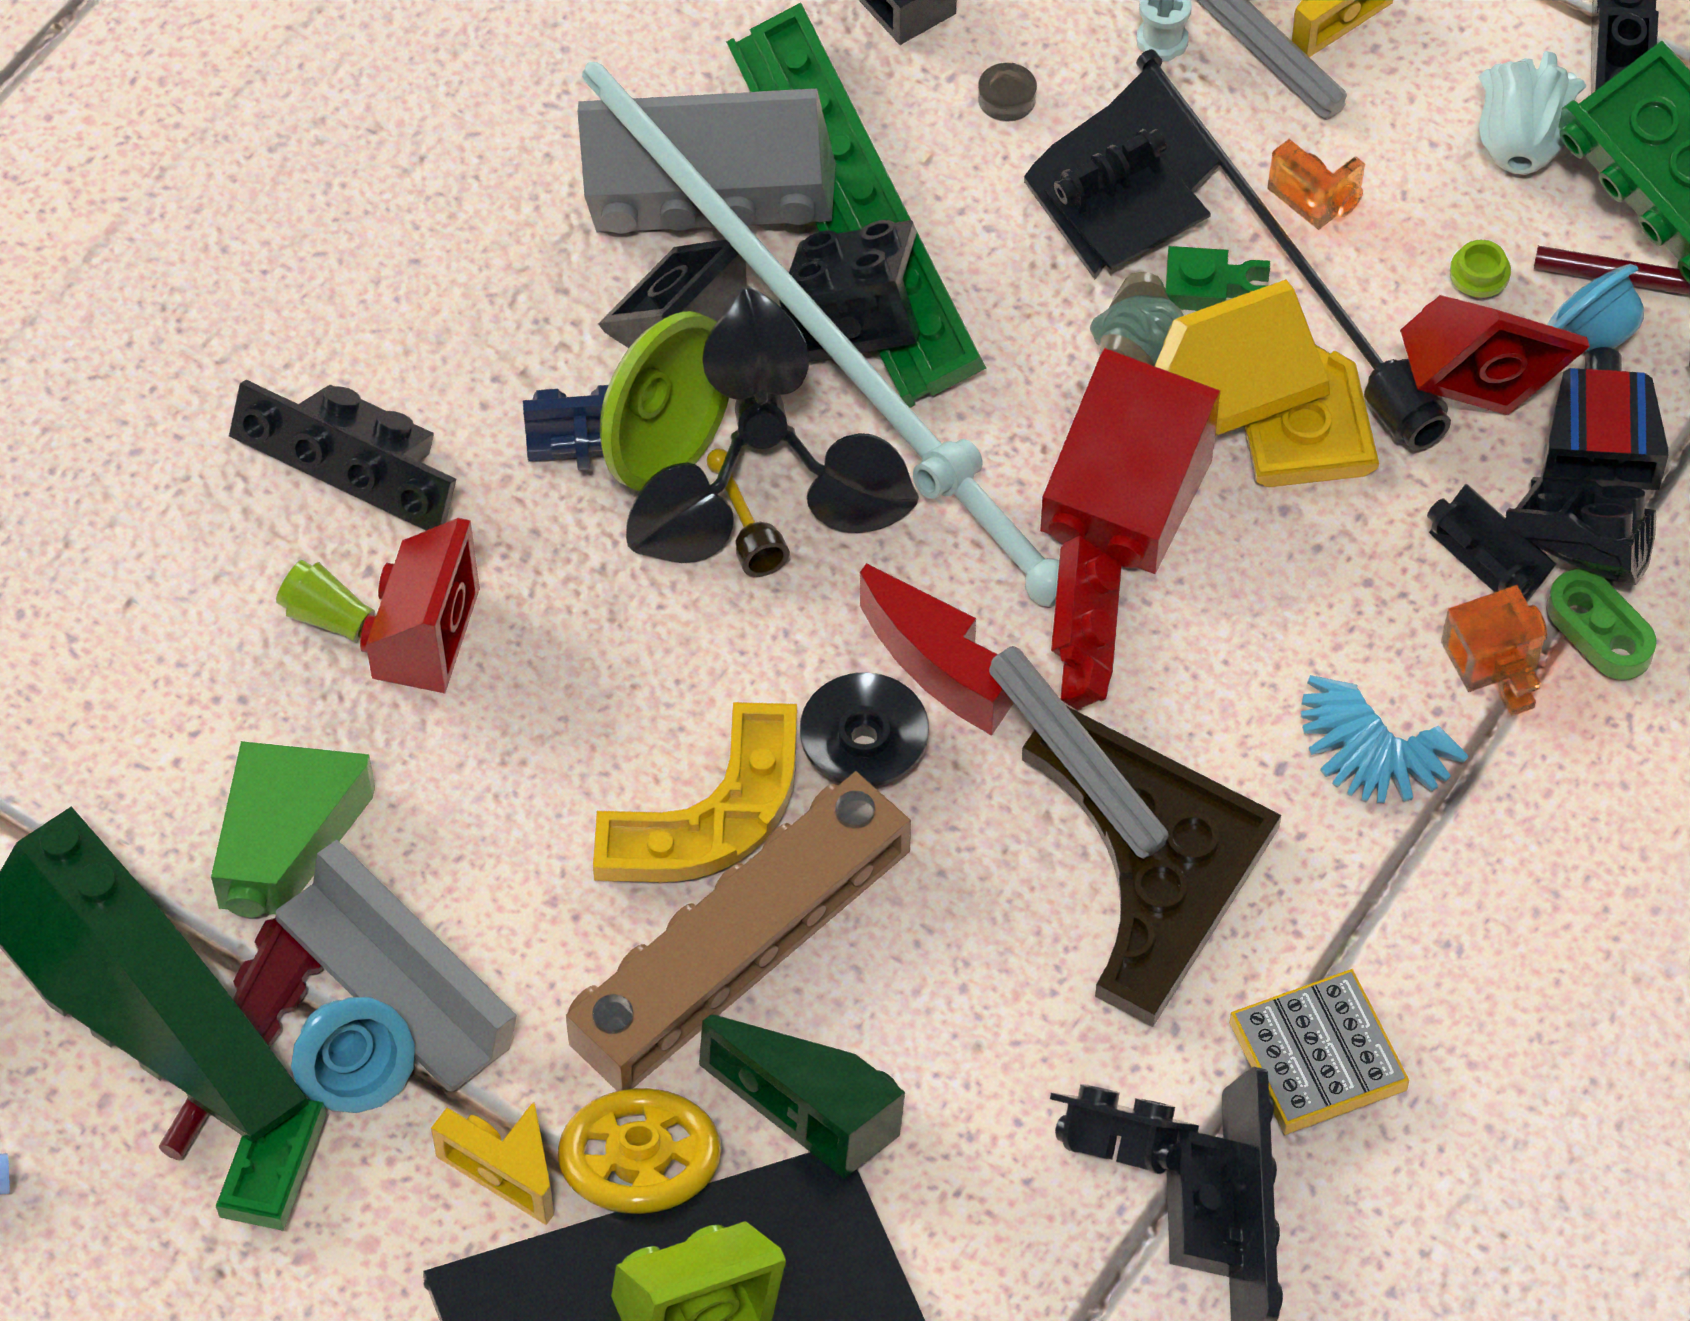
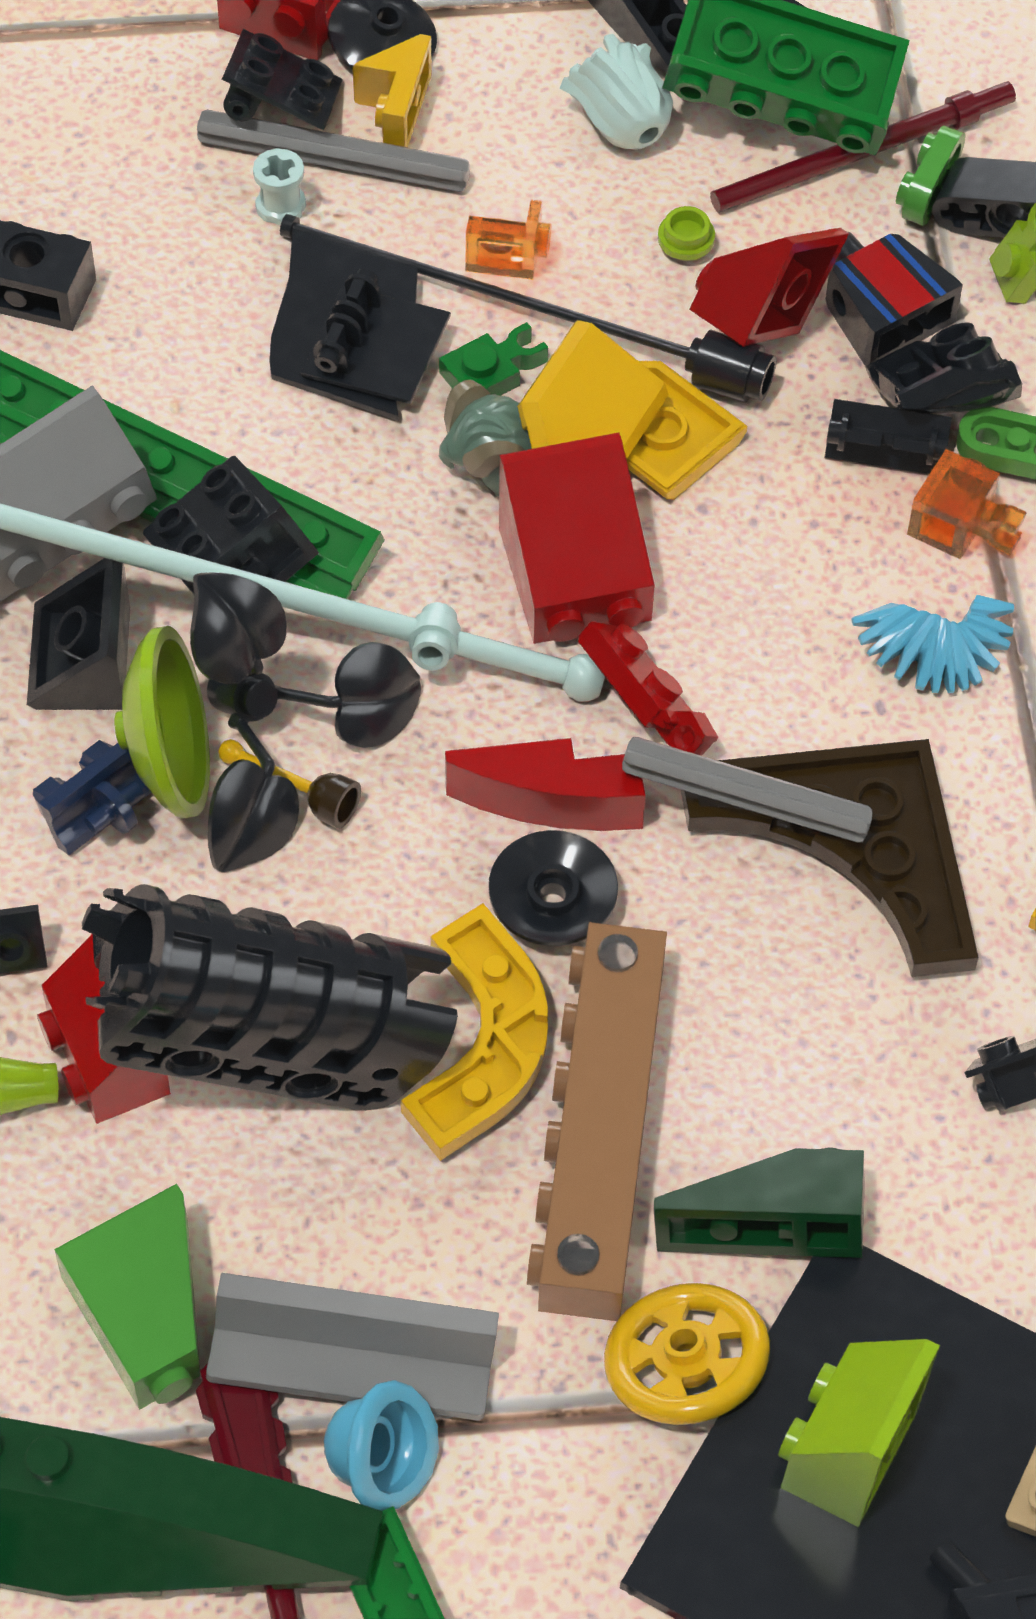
camera: 40 degrees left, 0 degrees up
(508, 1167) = (603, 1444): yellow slope -> none
(527, 653) = (262, 1000): none -> black piece
(1007, 92) = (197, 315): clear smoke tile -> none
(1603, 310) = (806, 202): medium azure hat -> none

